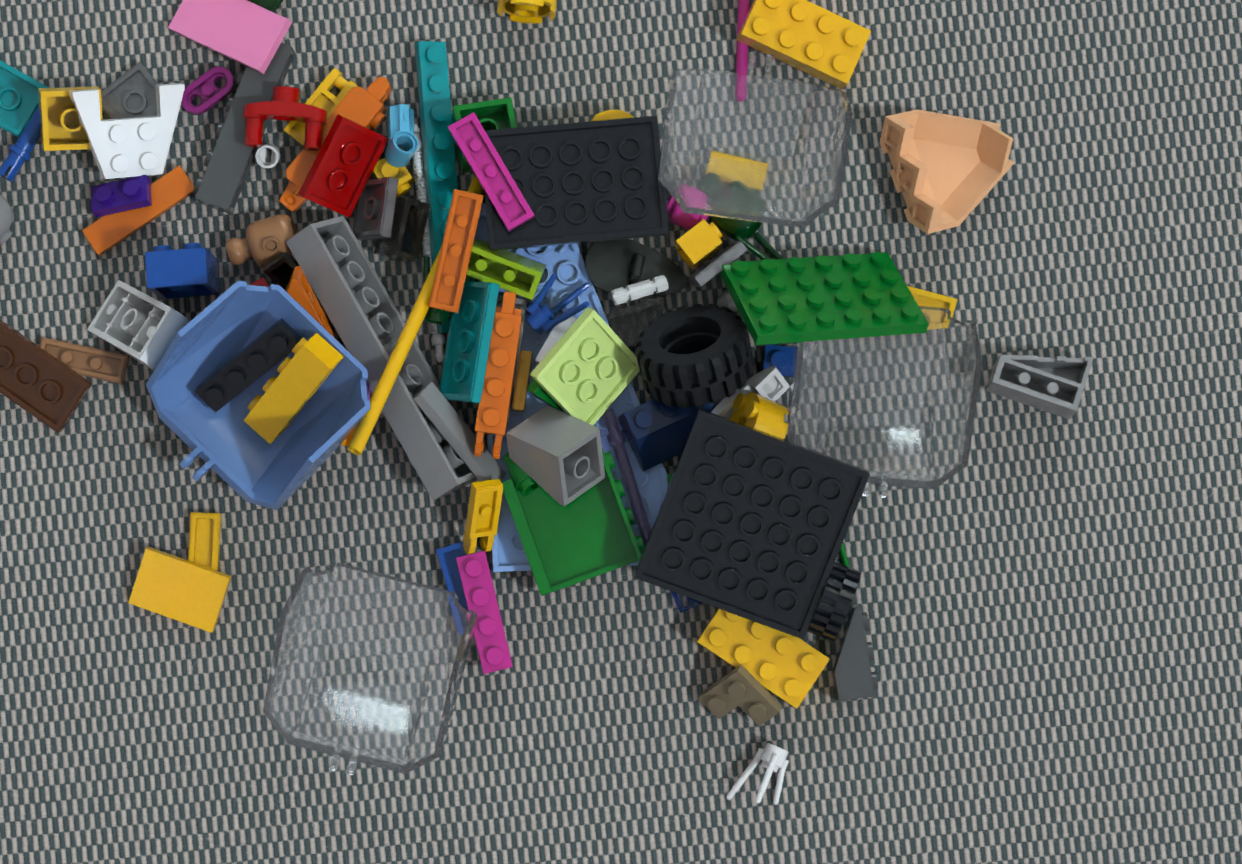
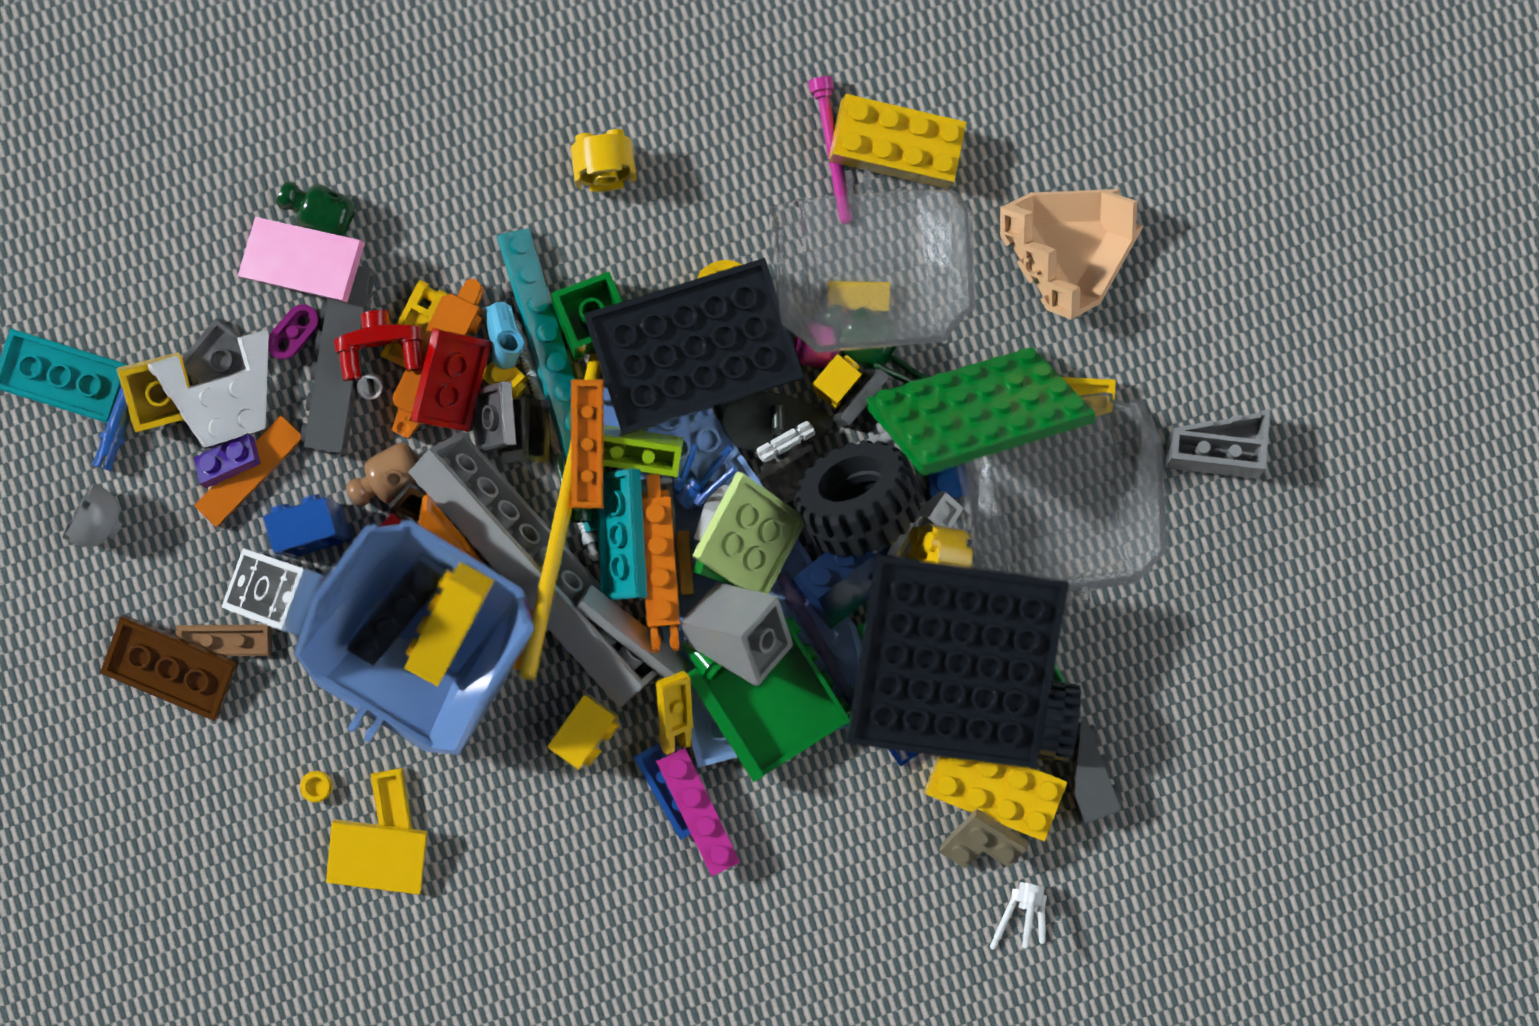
camera: 10 degrees left, 0 degrees up
(138, 513) = (316, 786): none -> yellow tile
(368, 667) = (590, 897): clear windscreen -> none
(395, 516) = (584, 731): none -> yellow brick
(491, 171) = (605, 353): dark pink plate -> none

